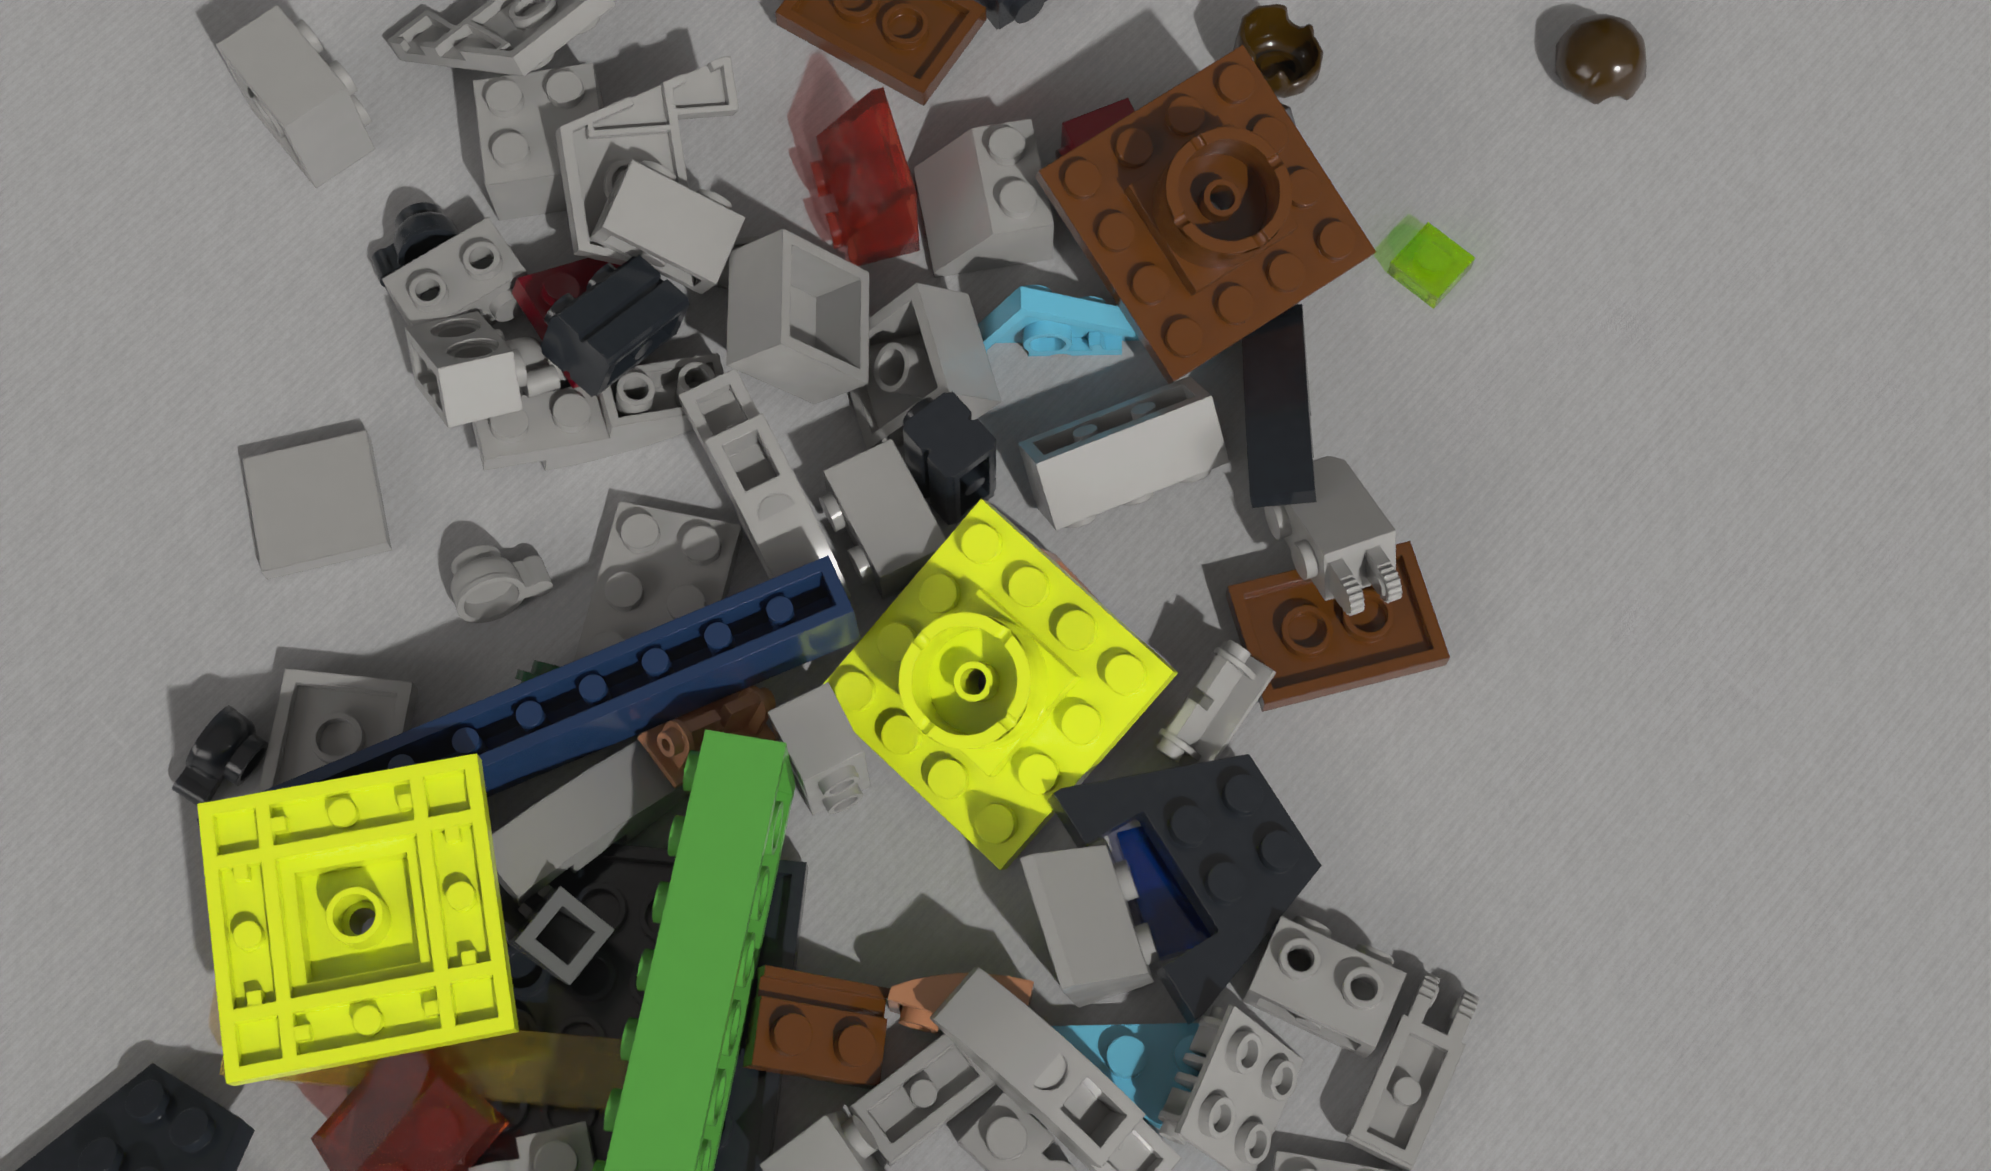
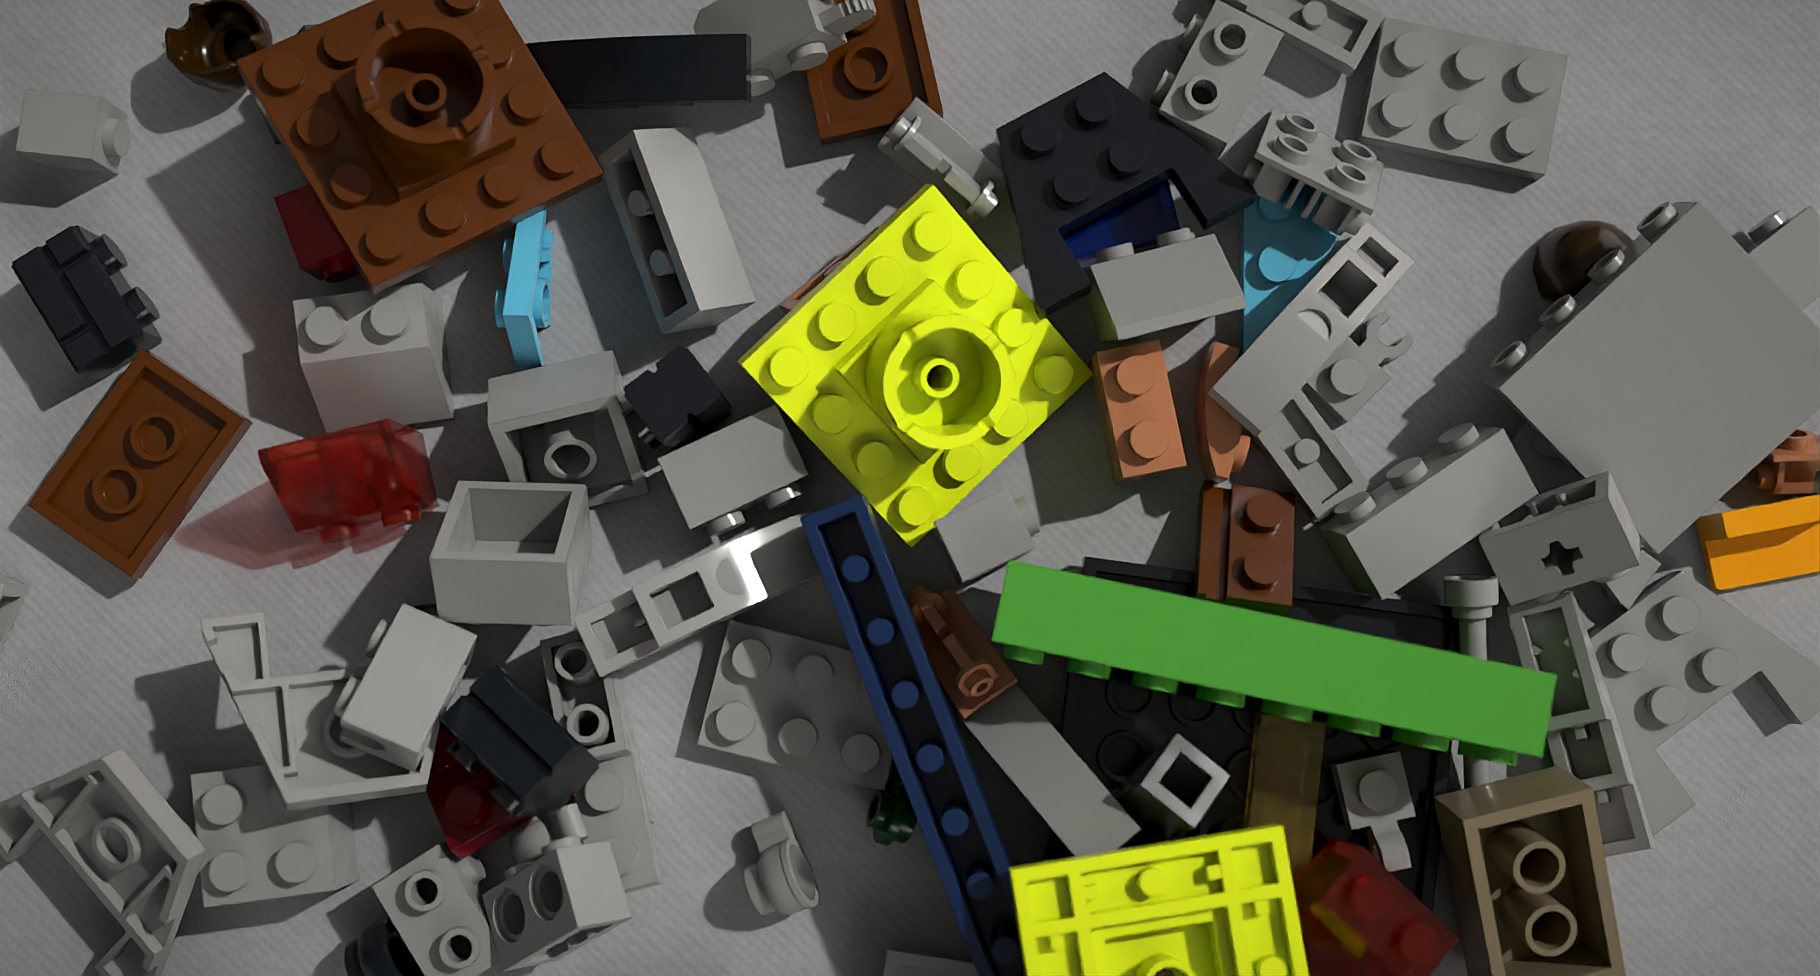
camera: 90 degrees left, 15 degrees up
(958, 909) = (1137, 412): none -> nougat brick

